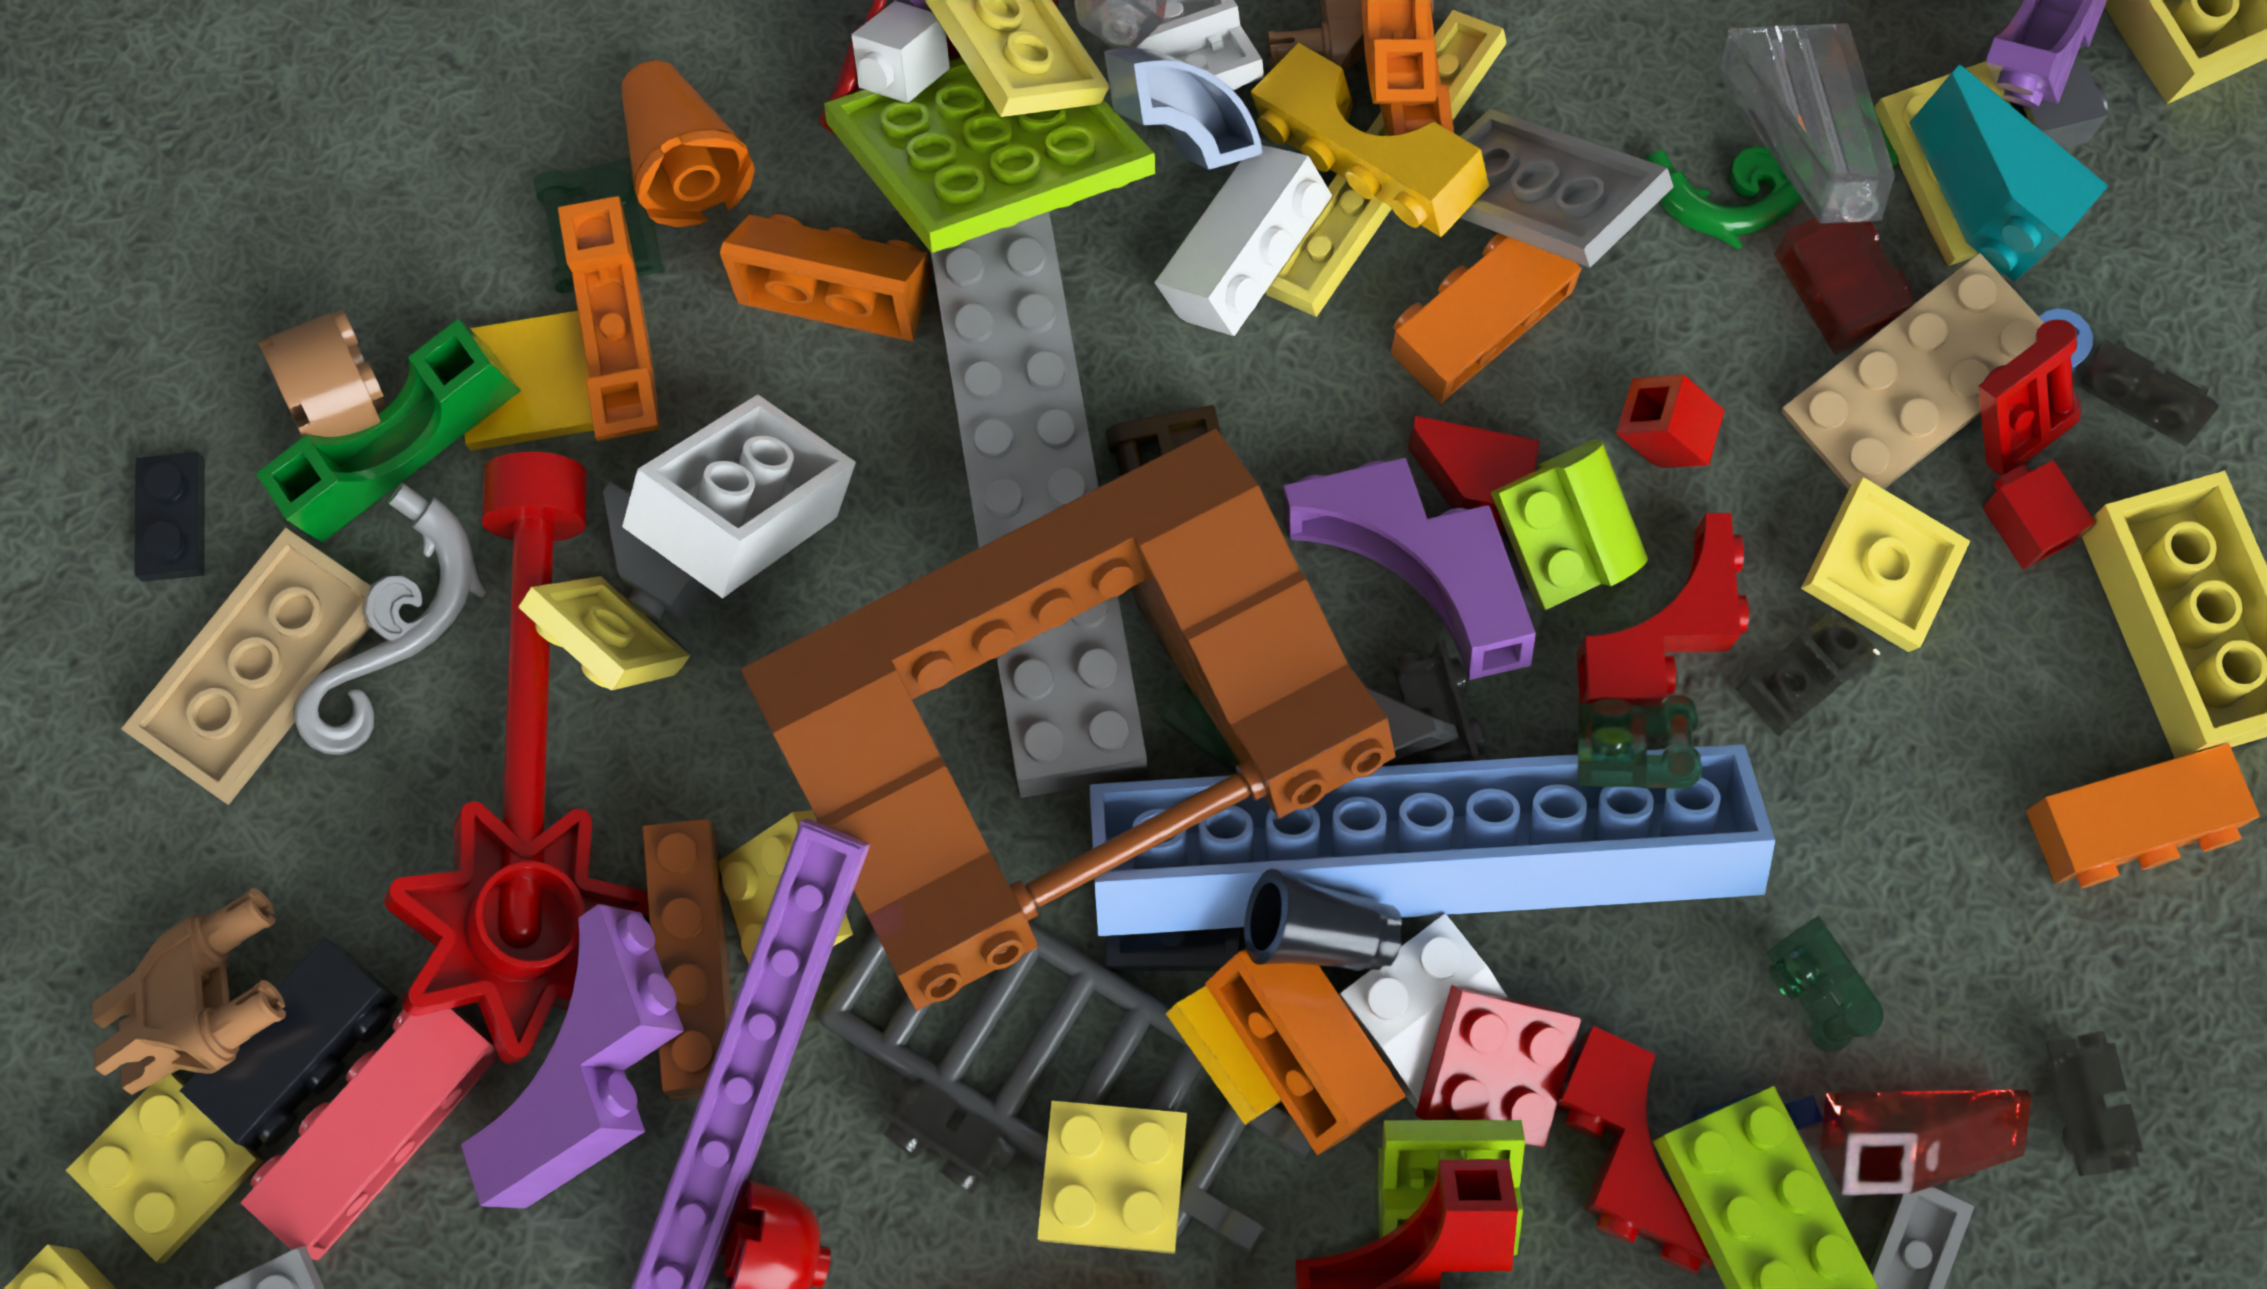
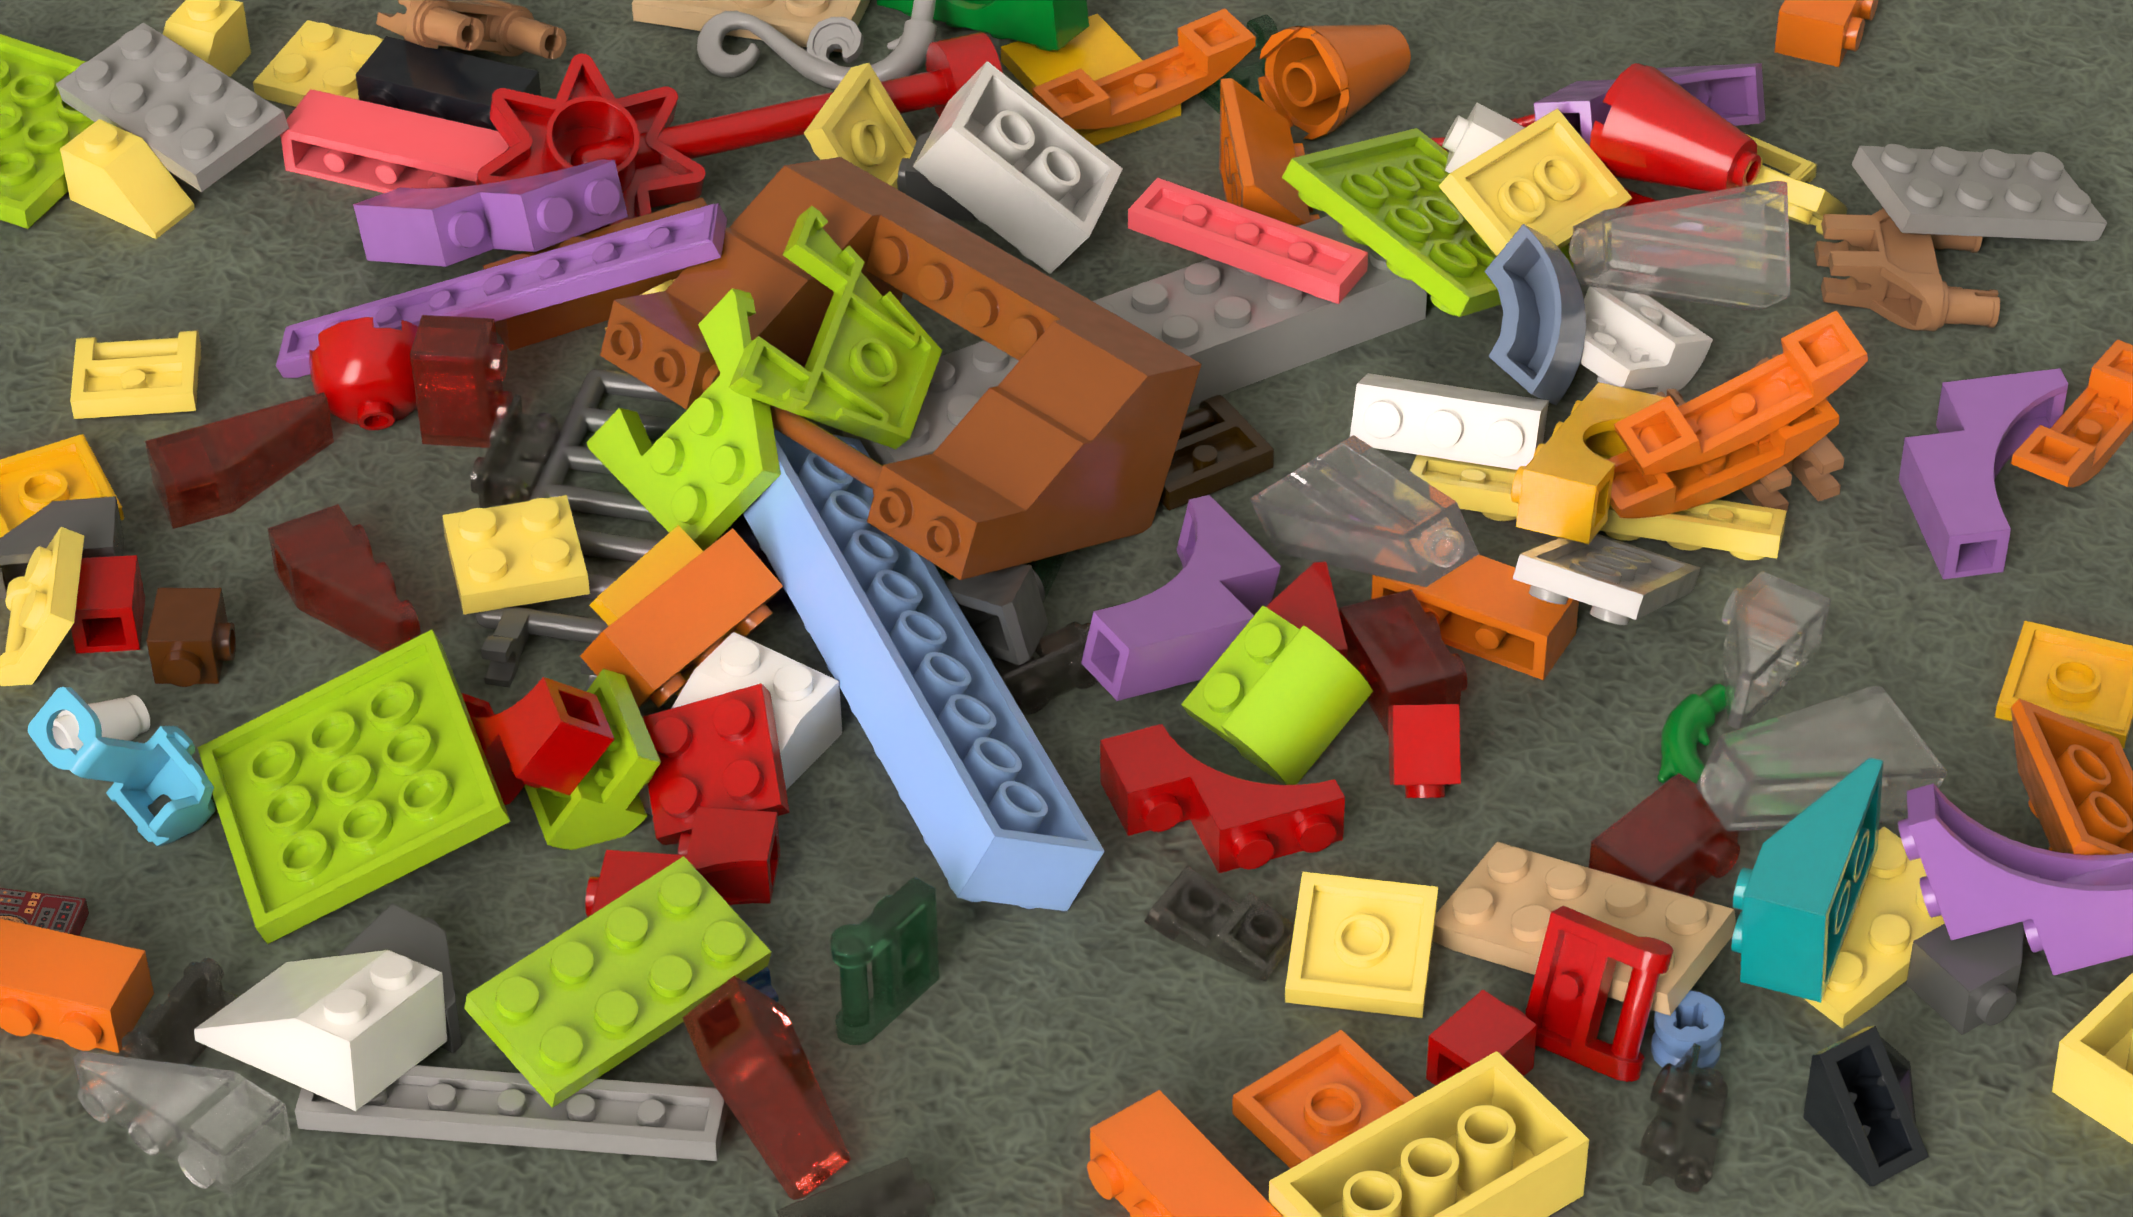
camera: 70 degrees right, 30 degrees down
(835, 1162) = (458, 380): none -> clear red brick
(974, 319) = (1248, 240): none -> coral plate
(1054, 743) = (868, 357): none -> lime wing
(1103, 952) = (713, 455): none -> lime wing
(1318, 925) = (779, 570): black plant -> none
(1383, 356) = (1365, 517): none -> clear slope
(1542, 398) = (1401, 654): none -> clear red brick
(1615, 748) = (1069, 759): clear green plate -> none
(1638, 100) = (1768, 641): none -> clear slope
(2066, 661) = (1318, 1099): none -> orange plate
(2171, 245) = (1865, 1105): none -> black slope

